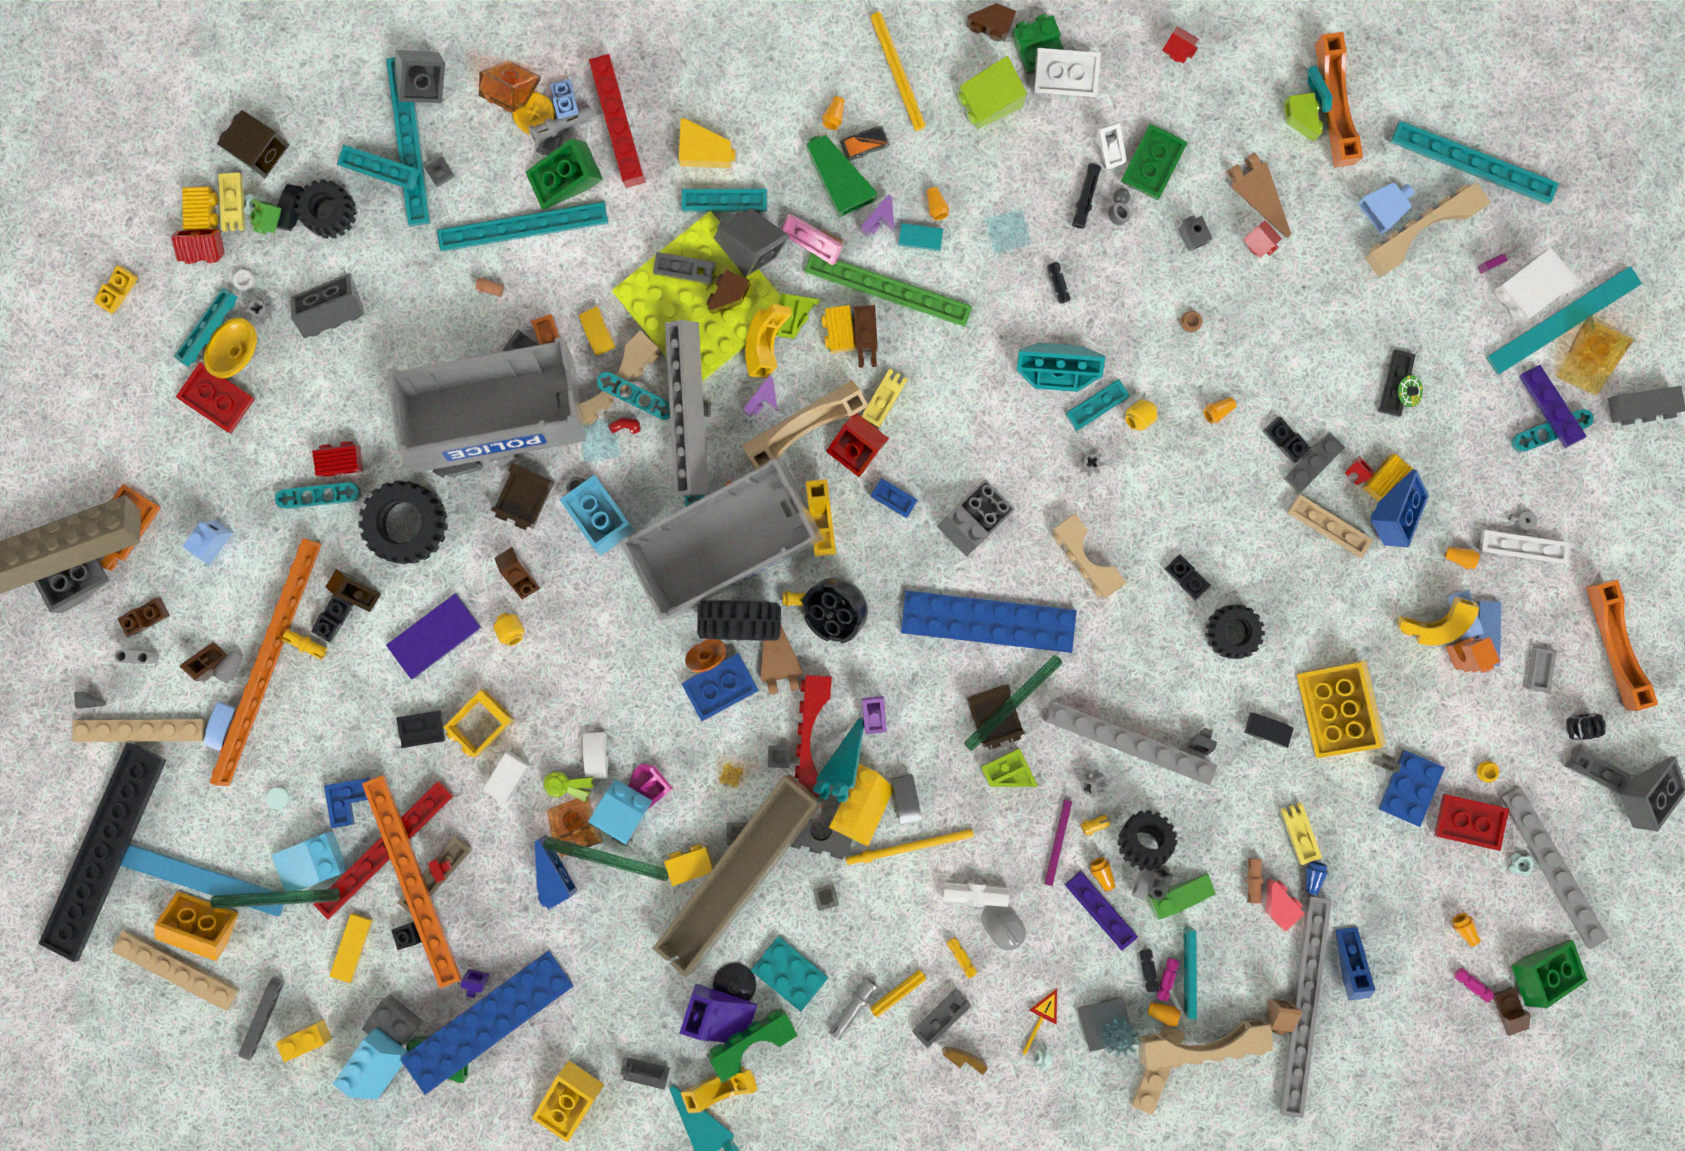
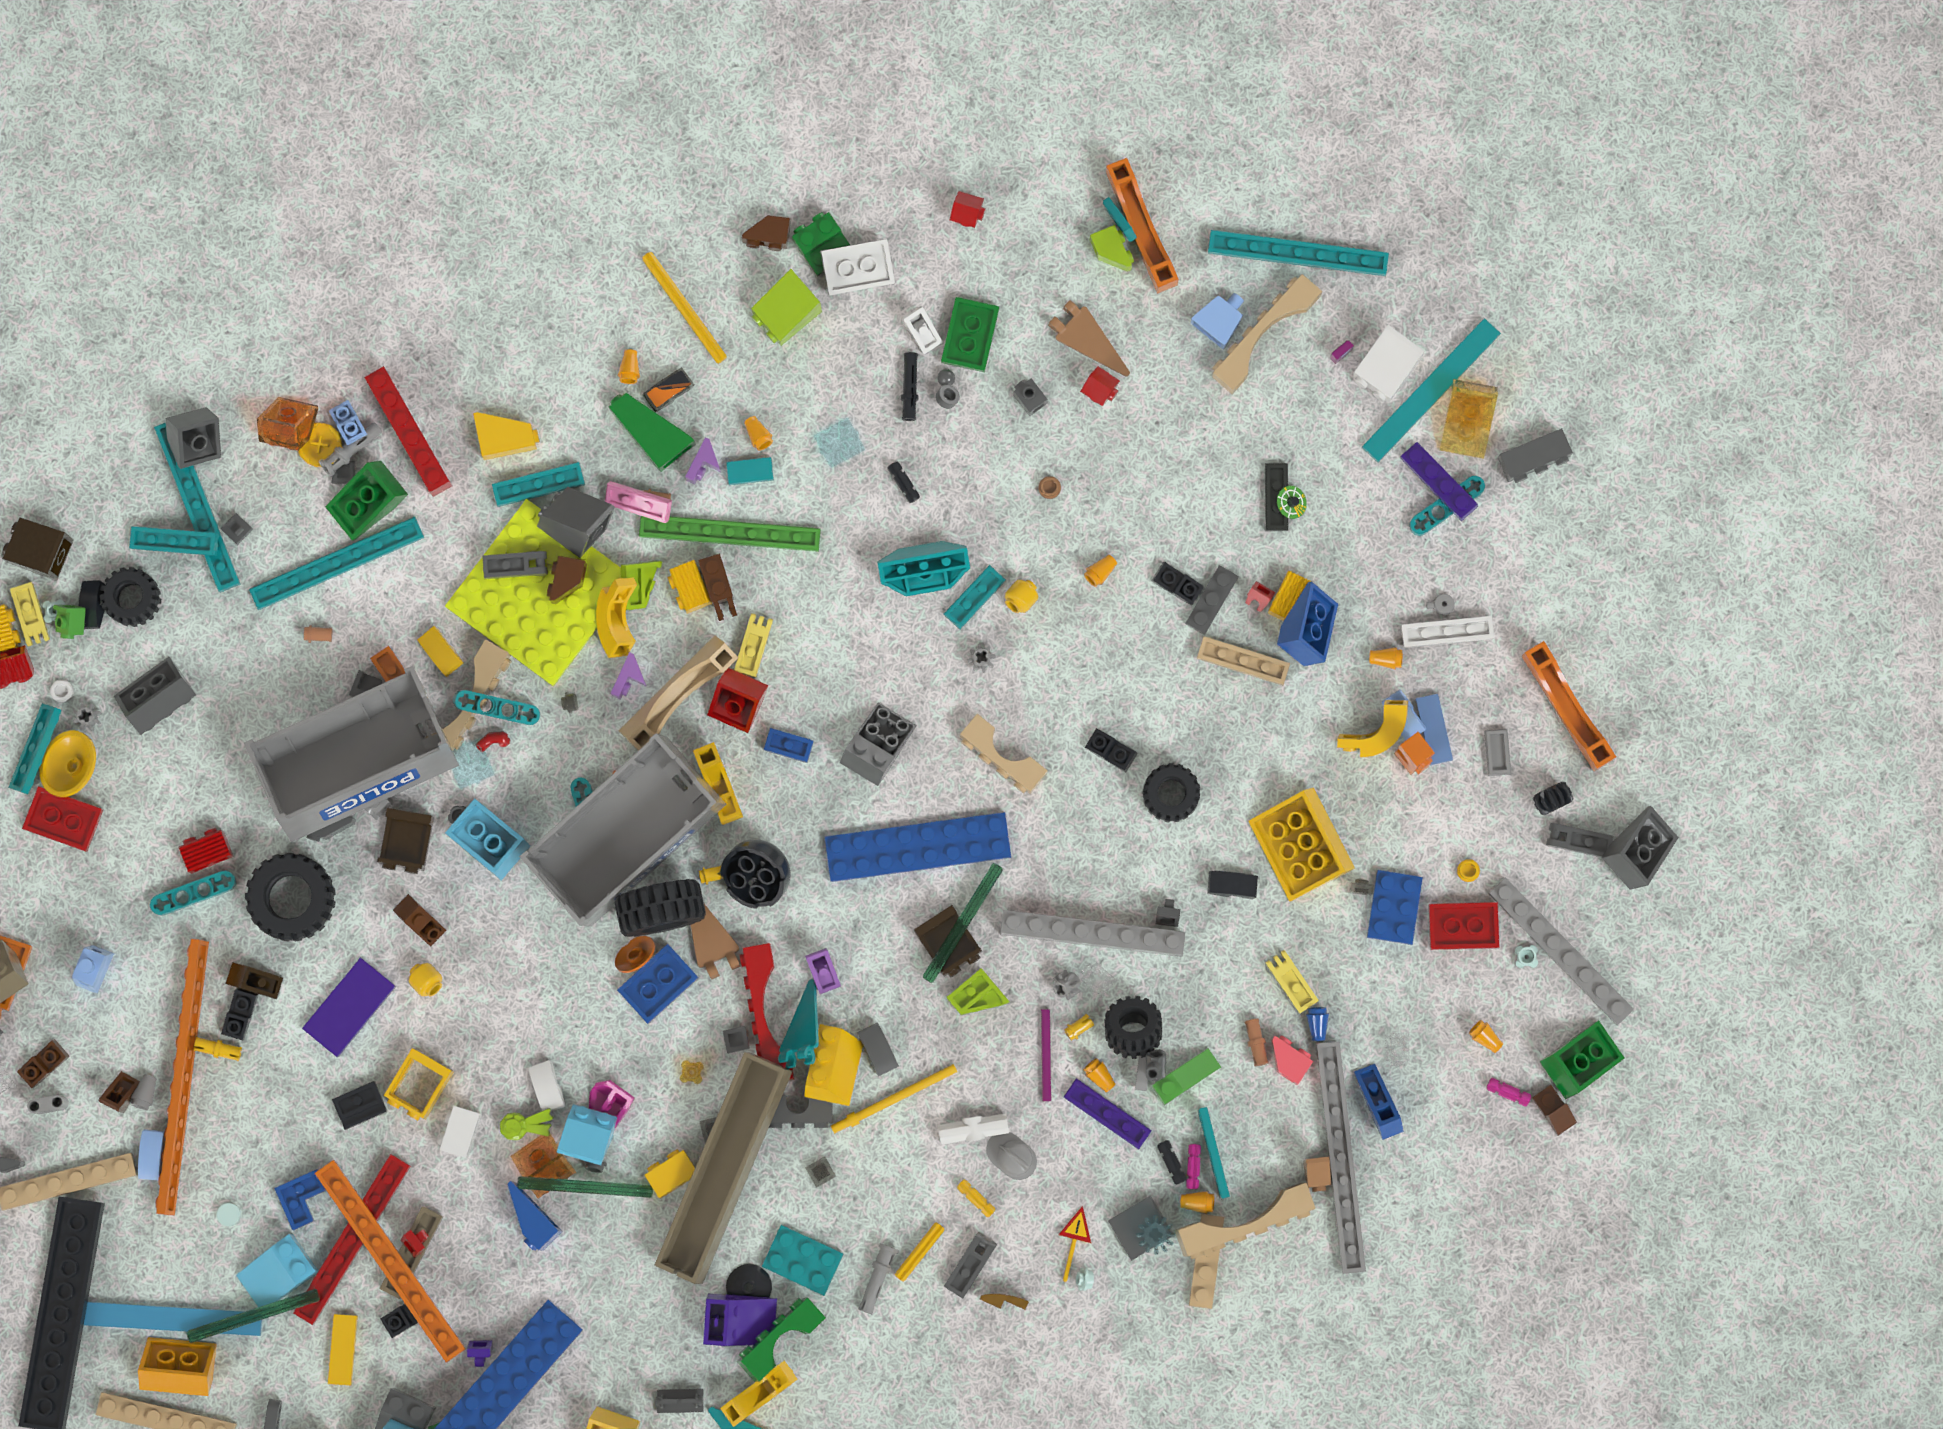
camera: 10 degrees left, 5 degrees down
(686, 408) = (553, 707): light grey brick -> none

